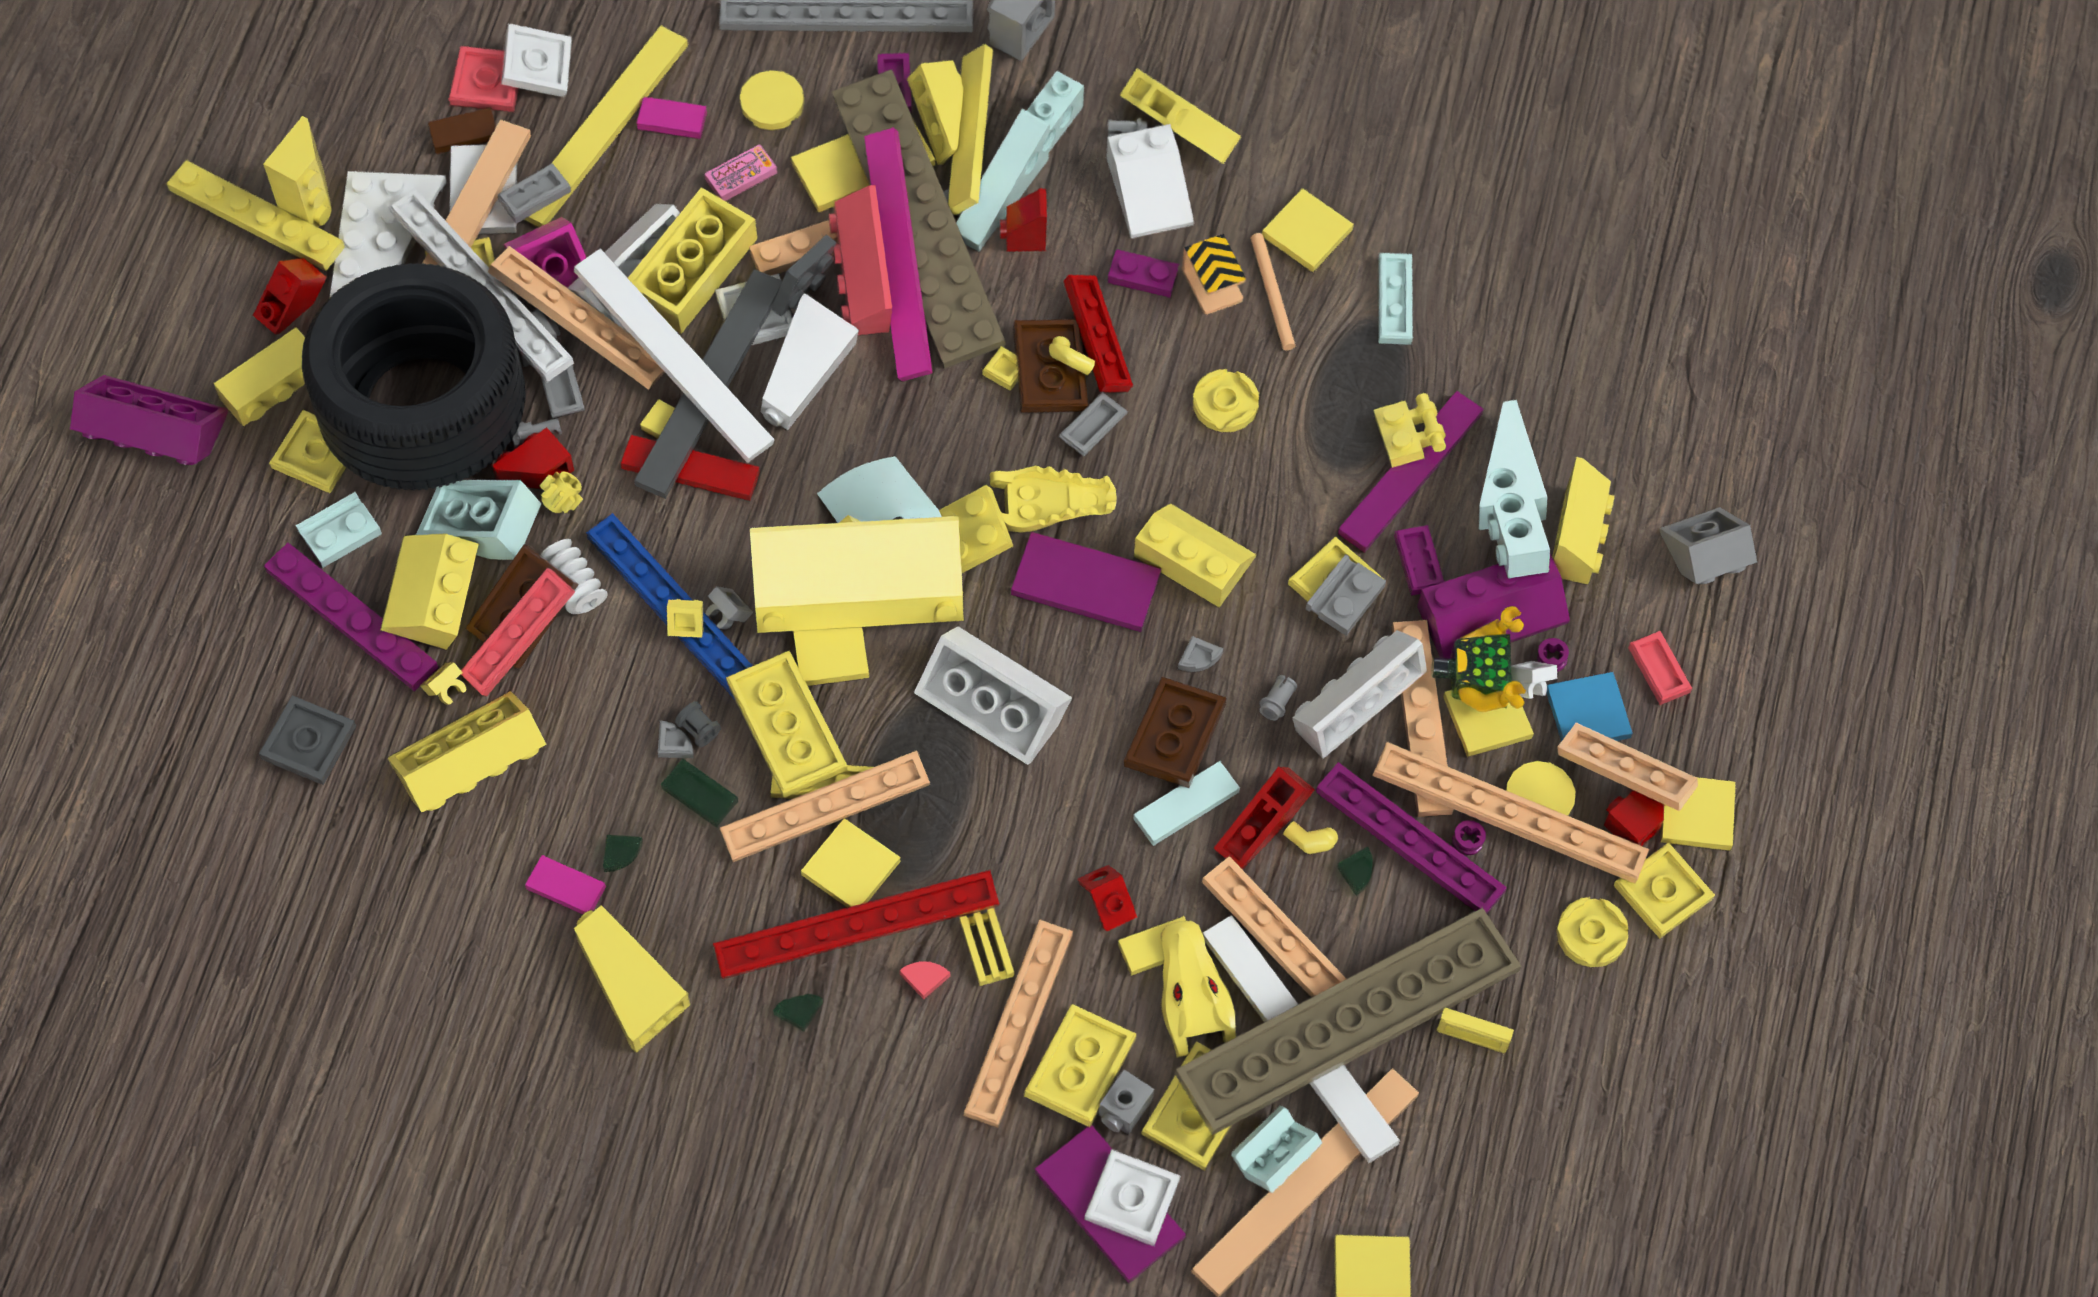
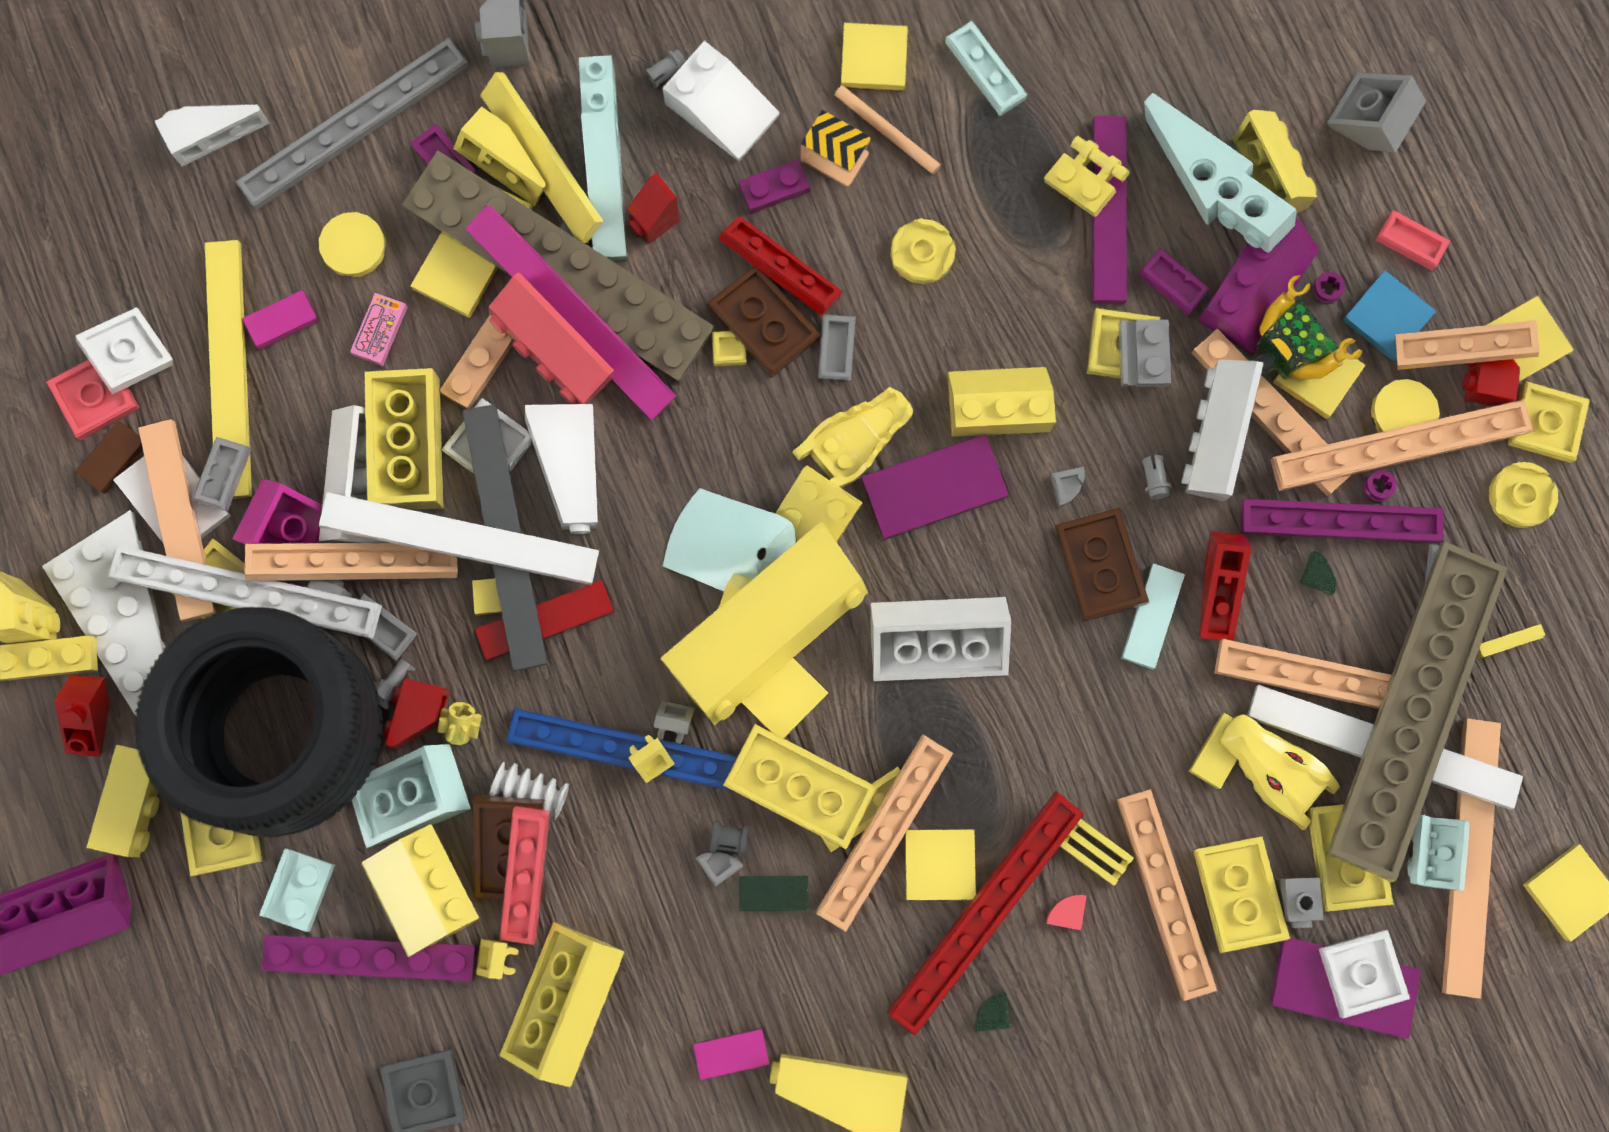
camera: 40 degrees left, 15 degrees up
(620, 851) = (751, 991): clear green tile -> none
(804, 275) = (514, 389): dark grey plate -> none
(1062, 352) = (779, 304): light yellow arm -> none
(1109, 897) = (1158, 739): red bracket -> none
(1181, 115) = (697, 26): light yellow slope -> none
(1312, 841) = (1271, 577): light yellow arm -> none
(1533, 677) = (1334, 316): white tile -> none

